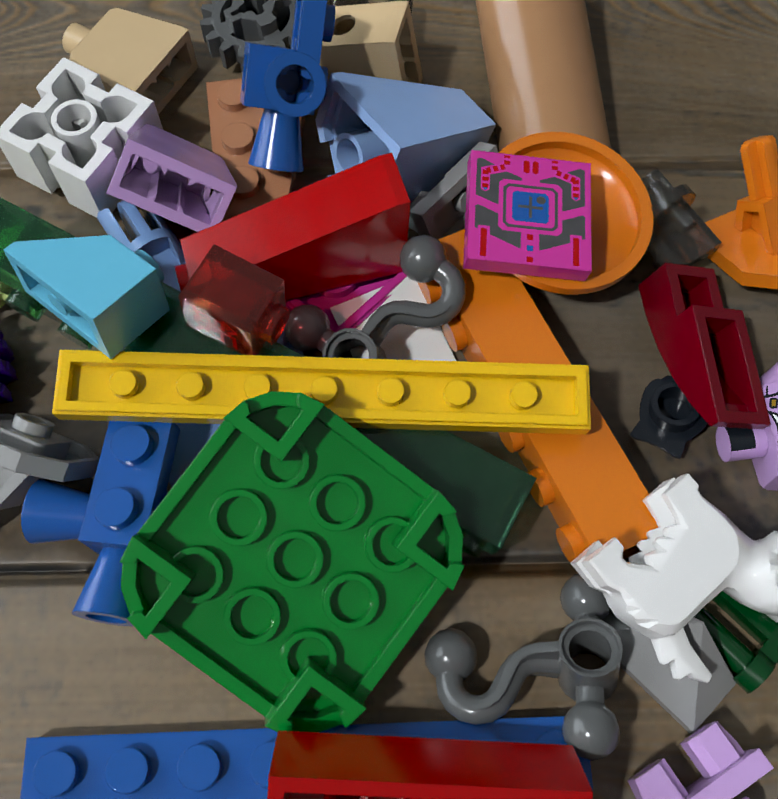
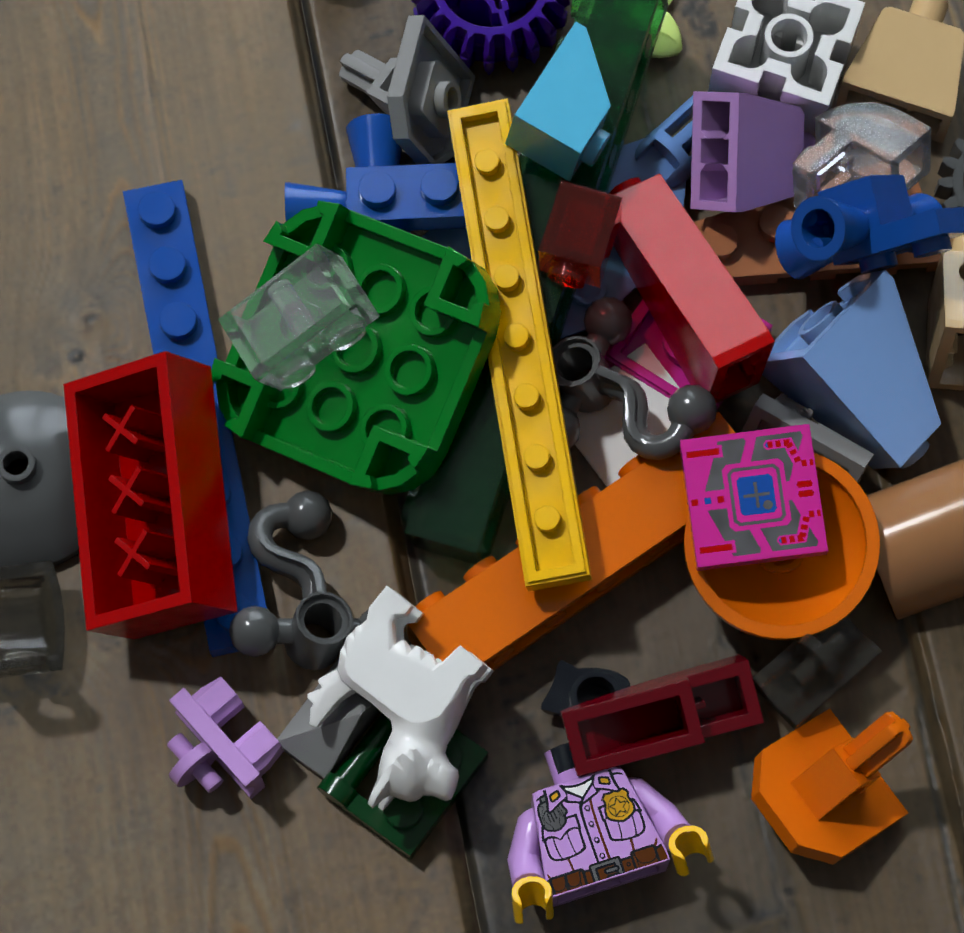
camera: 80 degrees right, 5 degrees up
(197, 92) = (862, 142): none -> clear brick
(254, 613) = (299, 319): none -> clear brick

